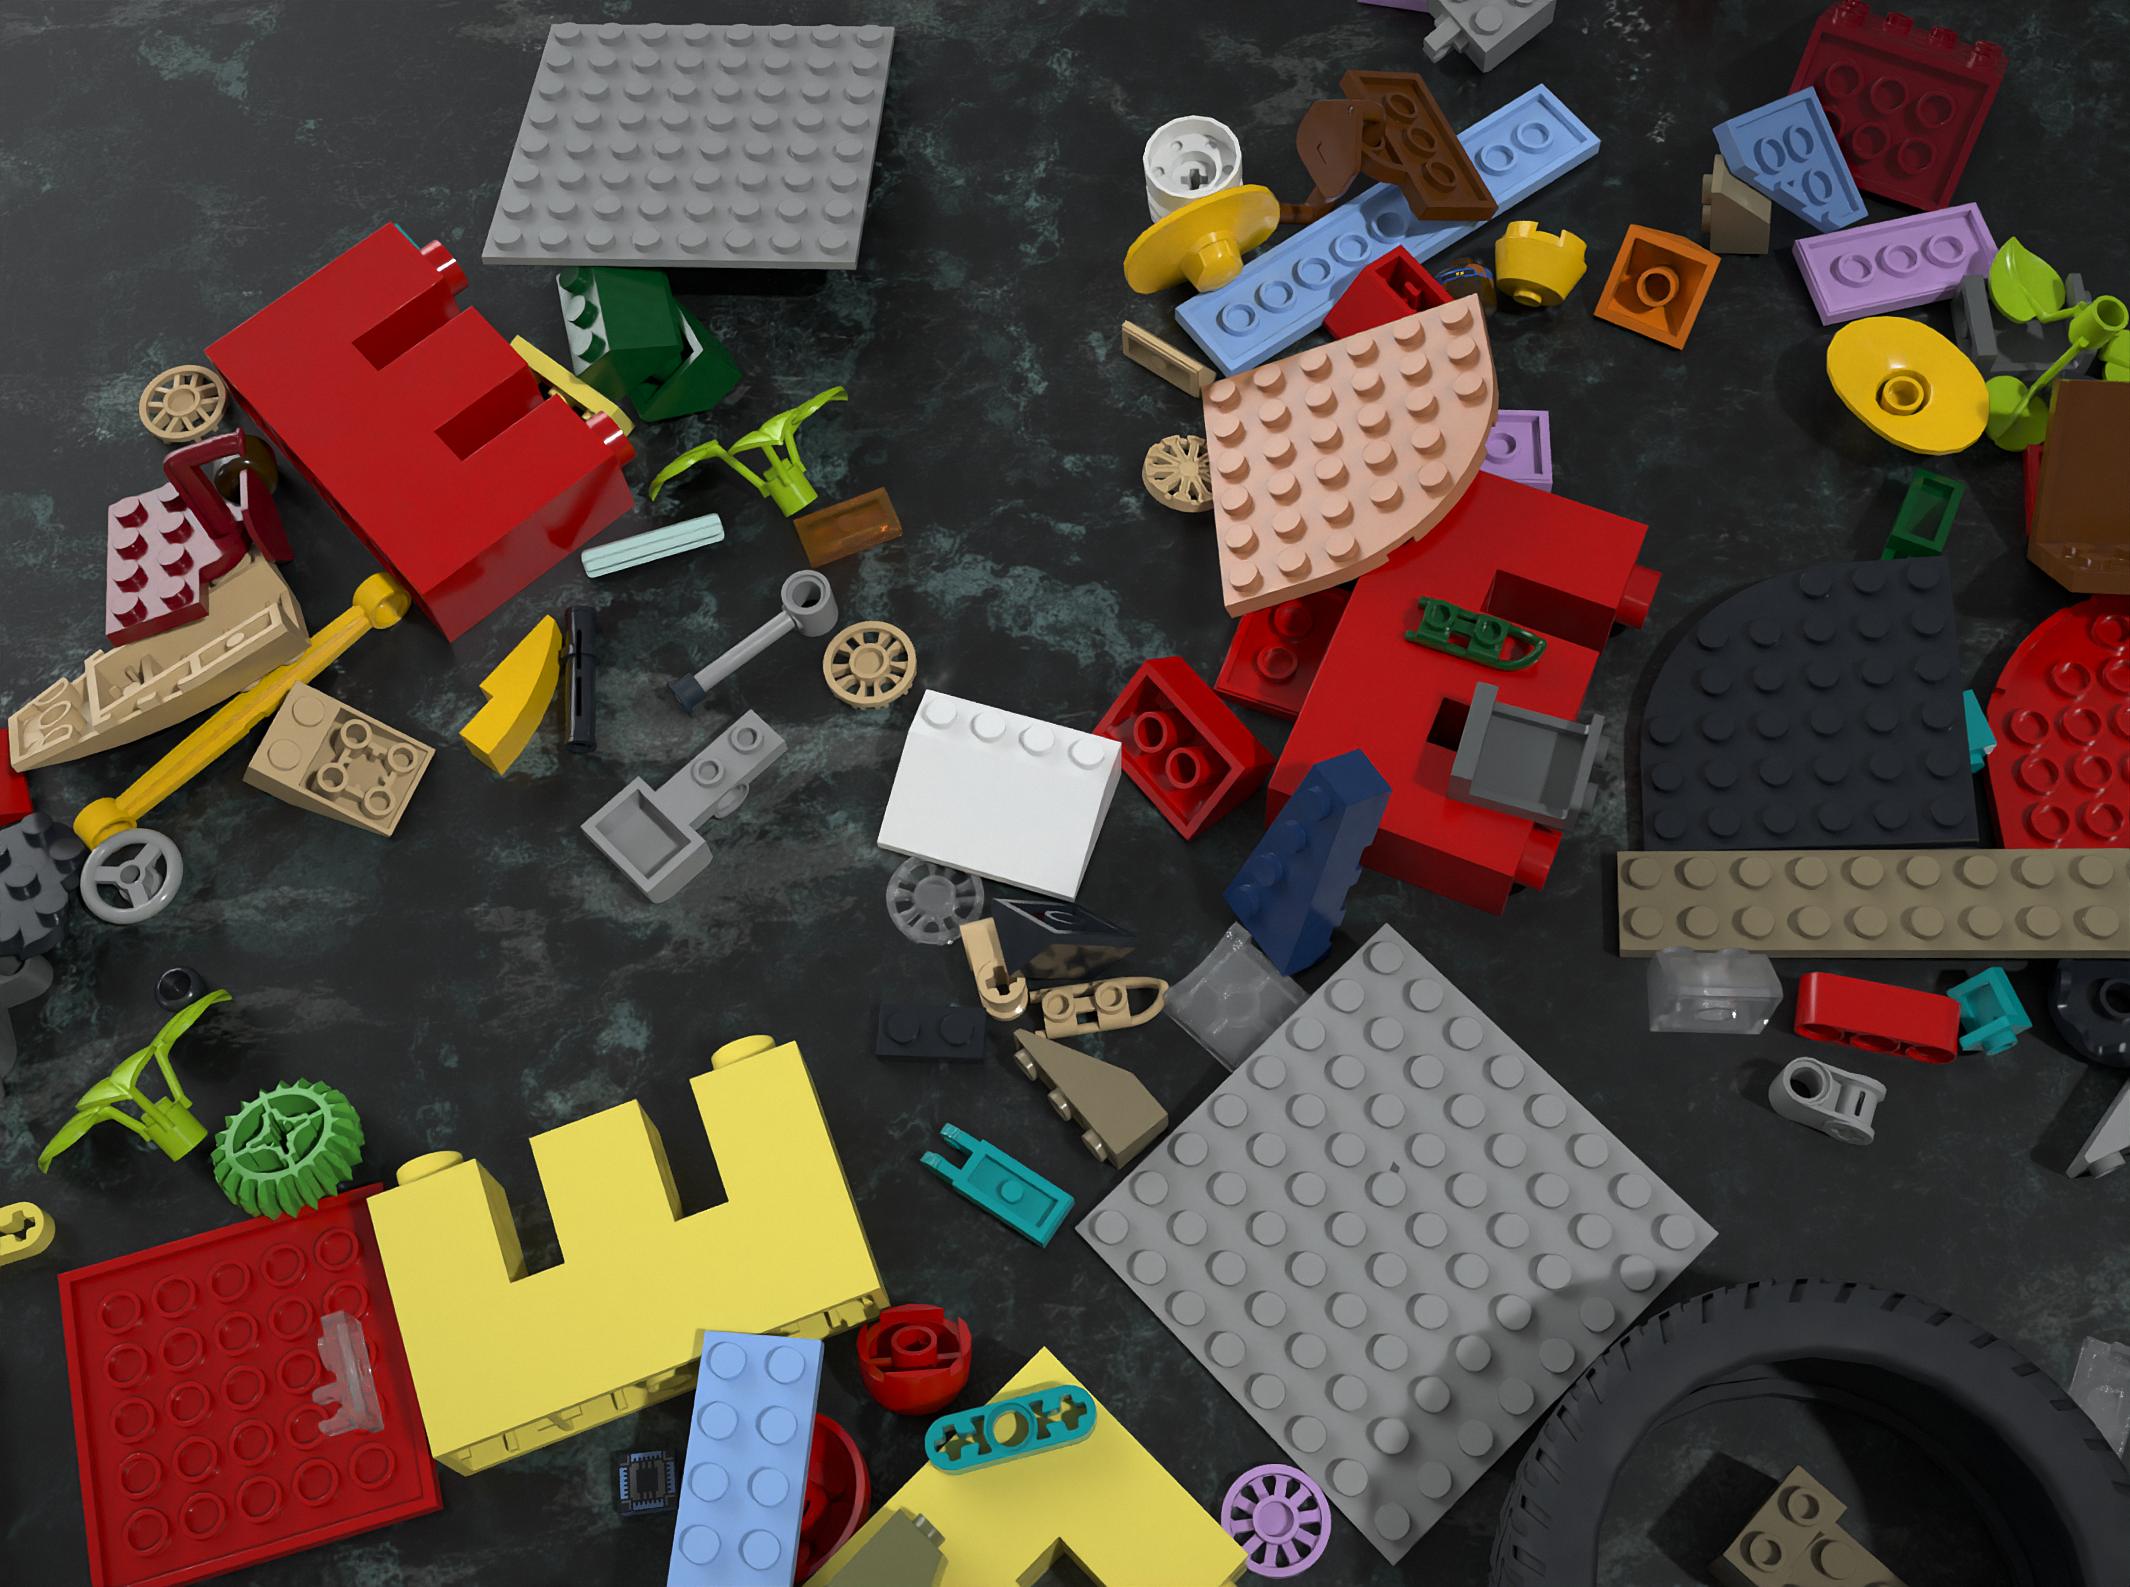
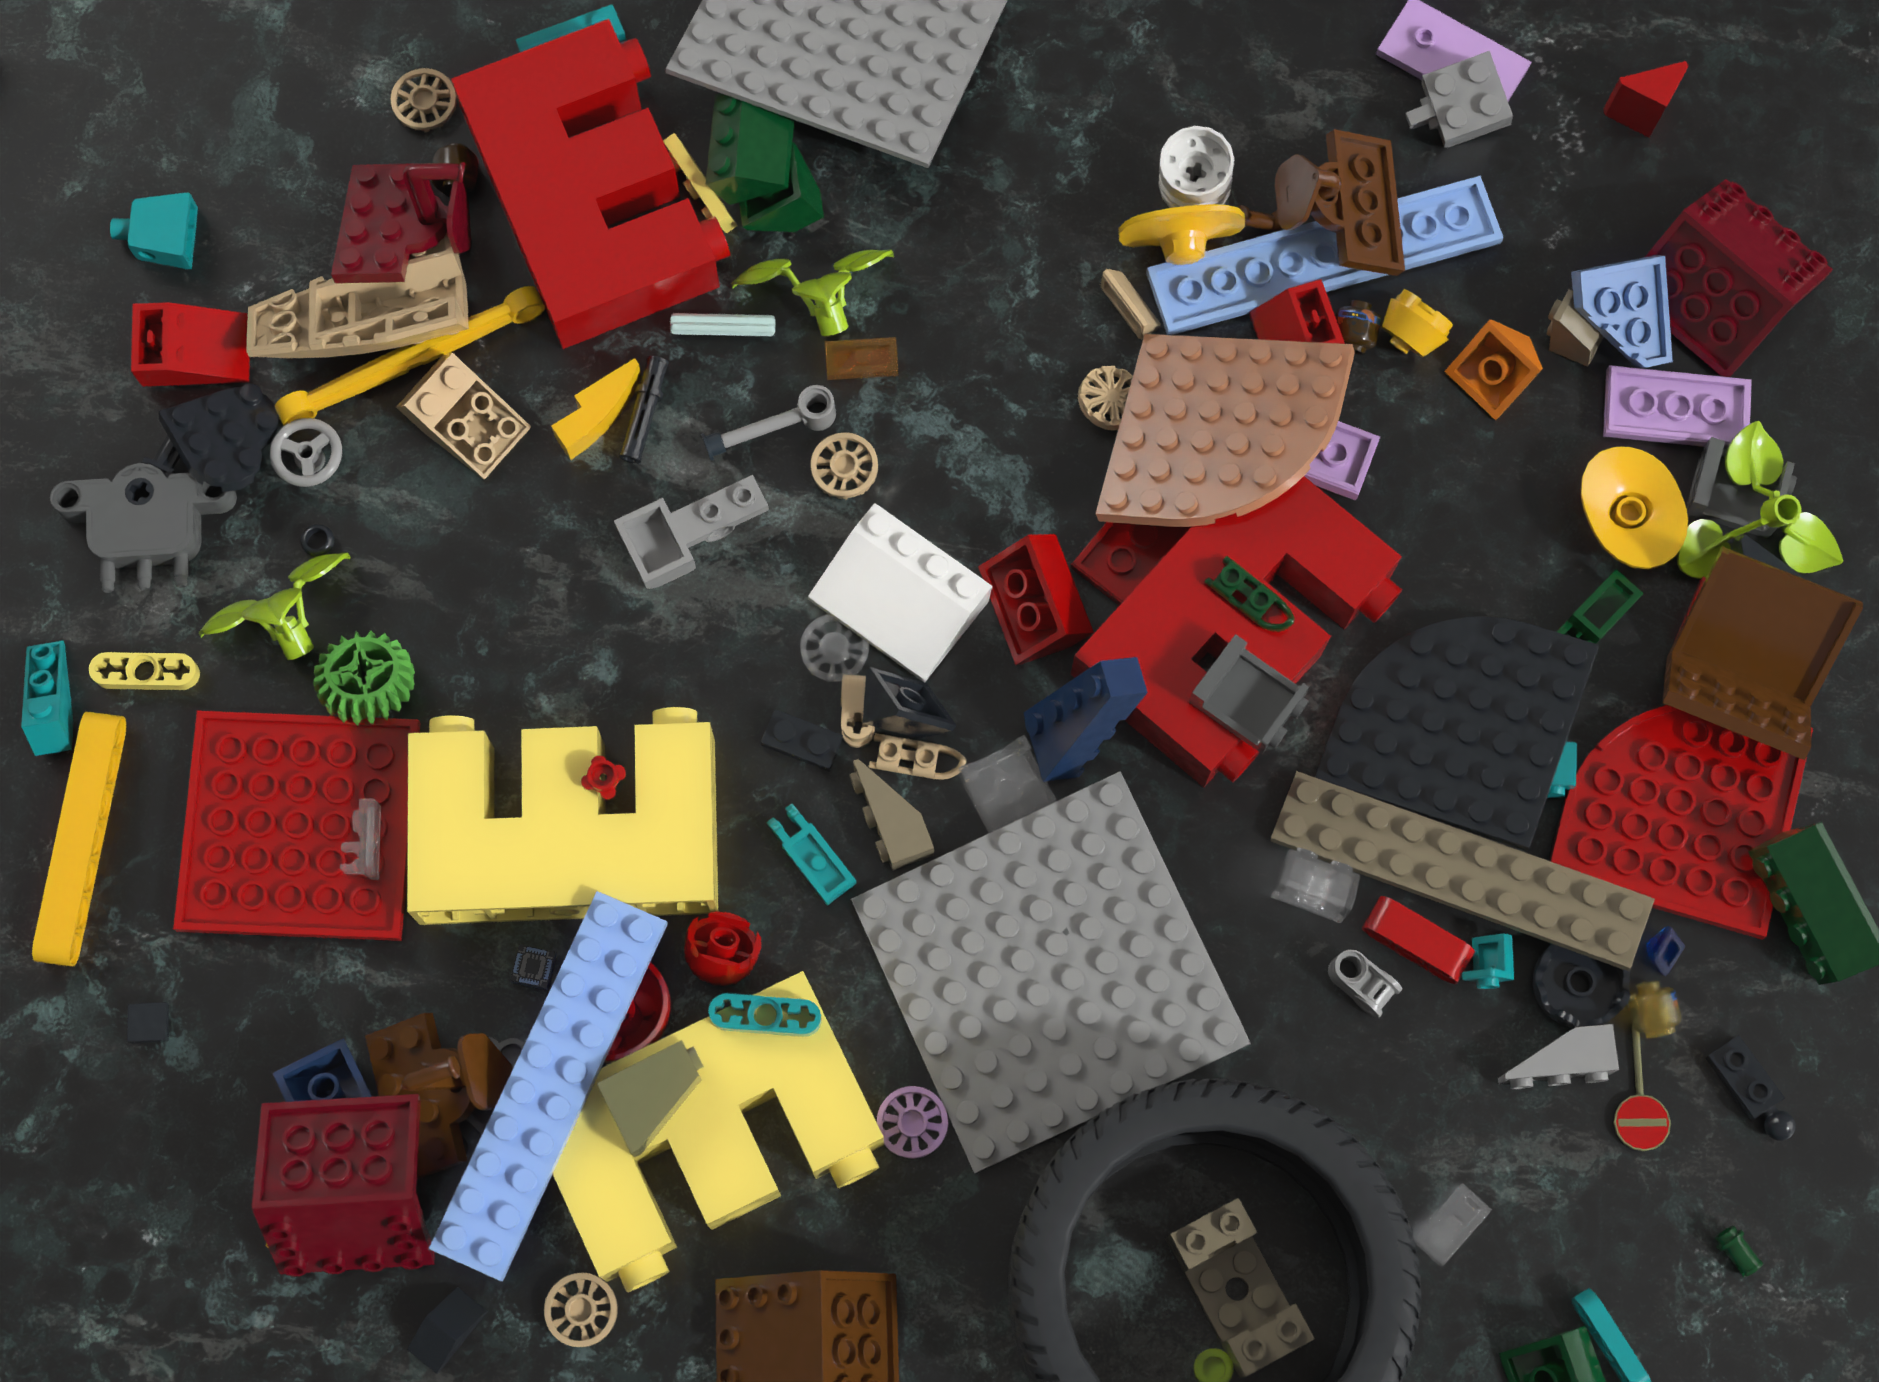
camera: 10 degrees right, 10 degrees up
(658, 1150) = (598, 767): none -> red plate

